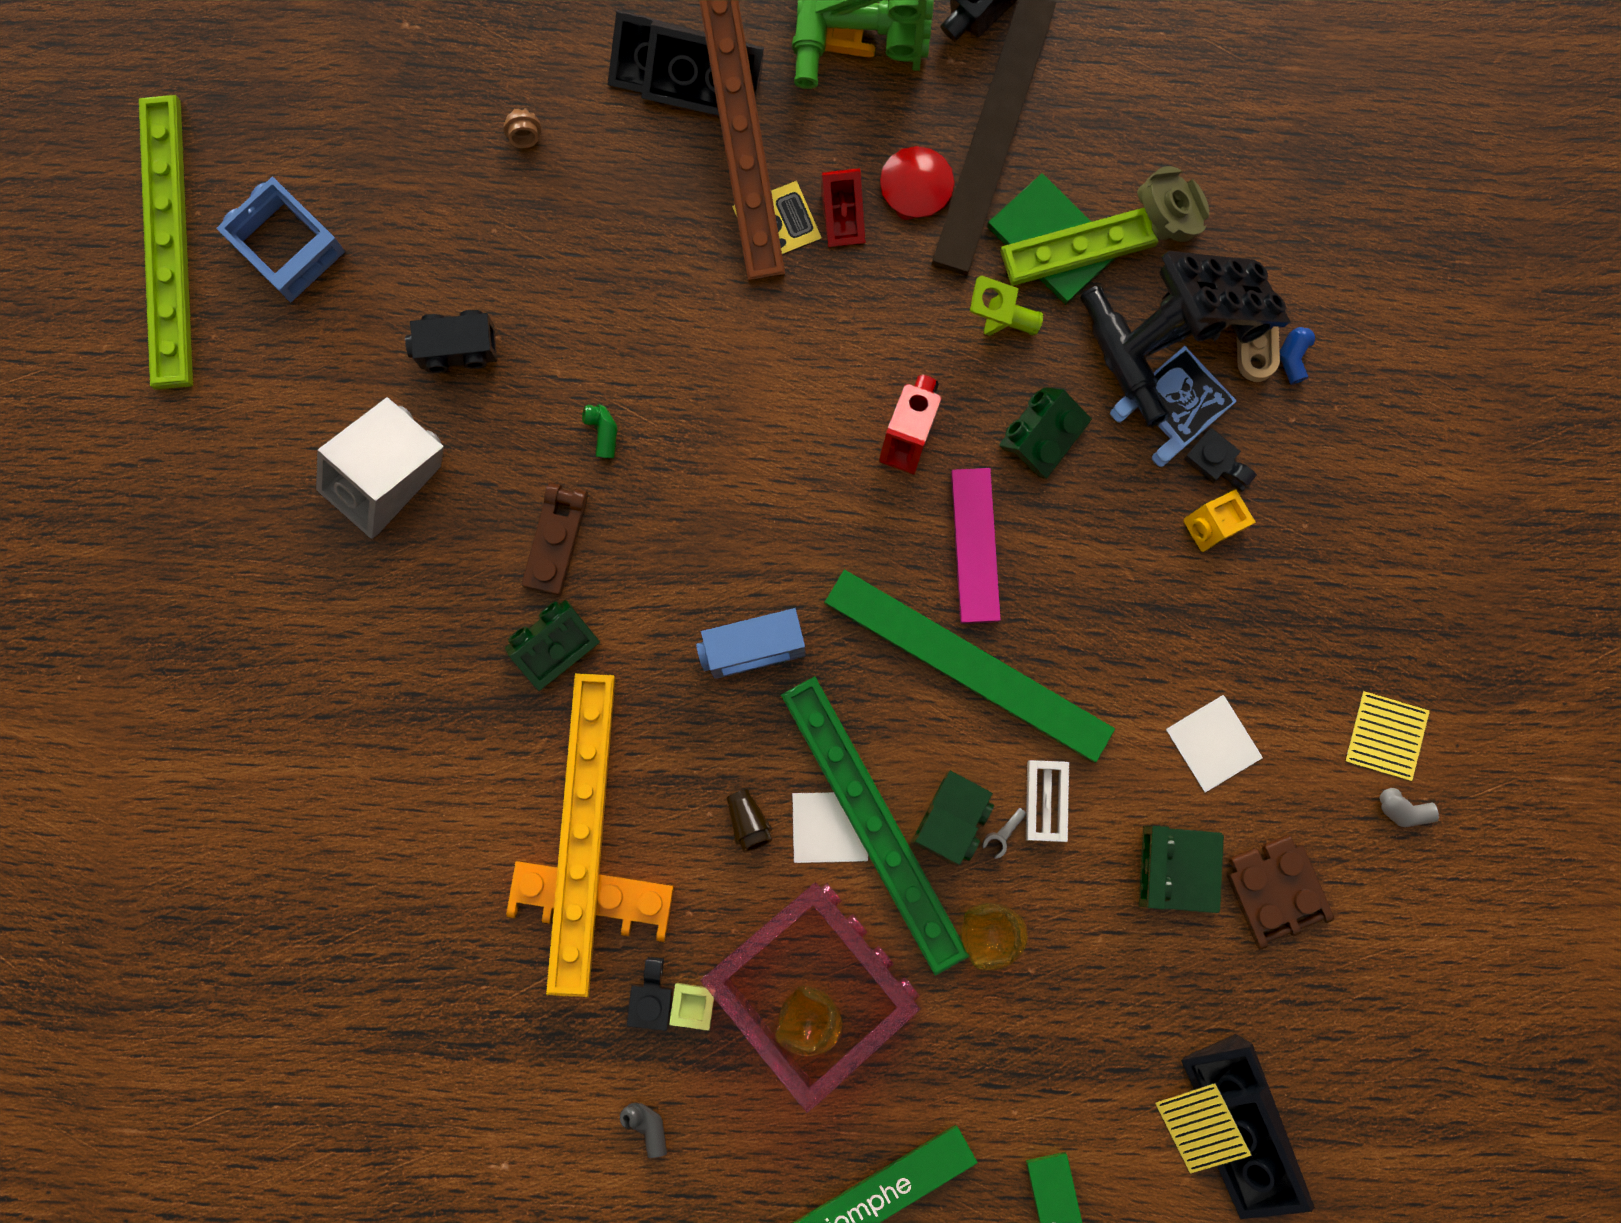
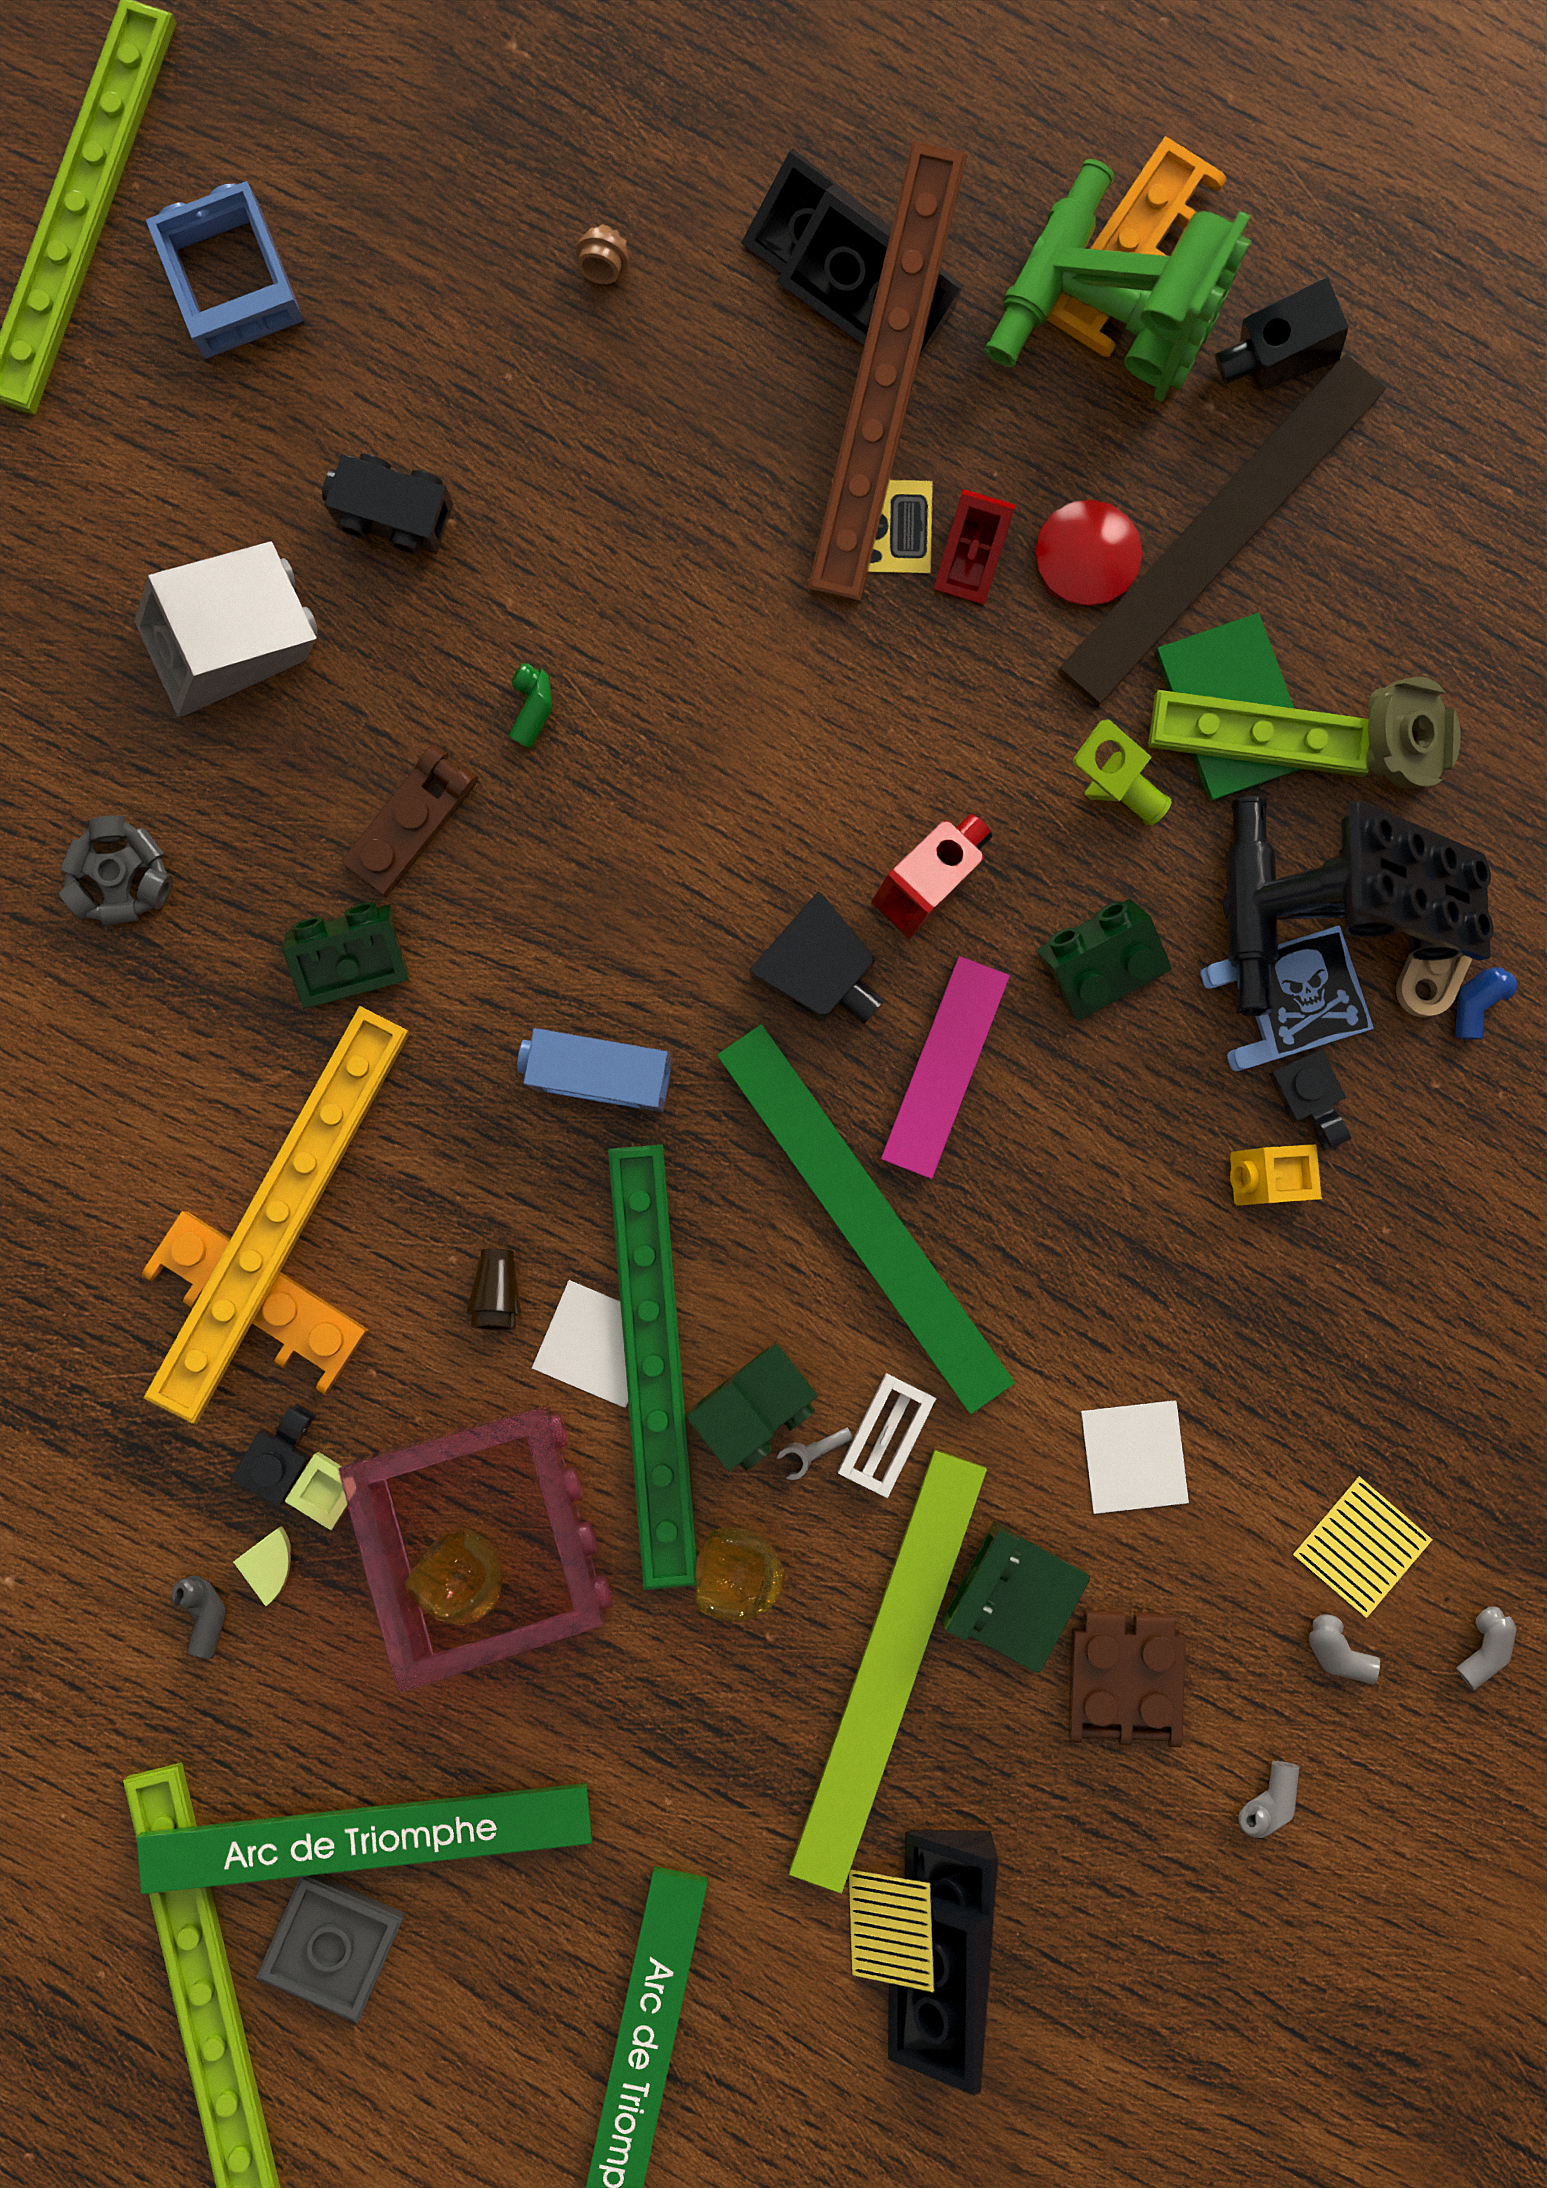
camera: 25 degrees right, 5 degrees up
(373, 657) = (114, 872): none -> dark grey piece
(676, 1074) = (267, 1565): none -> yellowish green tile
(865, 514) = (819, 964): none -> black torso
(1120, 959) = (887, 1671): none -> lime tile
(1412, 931) = (1275, 1805): none -> light grey arm
(1504, 761) = (1495, 1650): none -> light grey arm

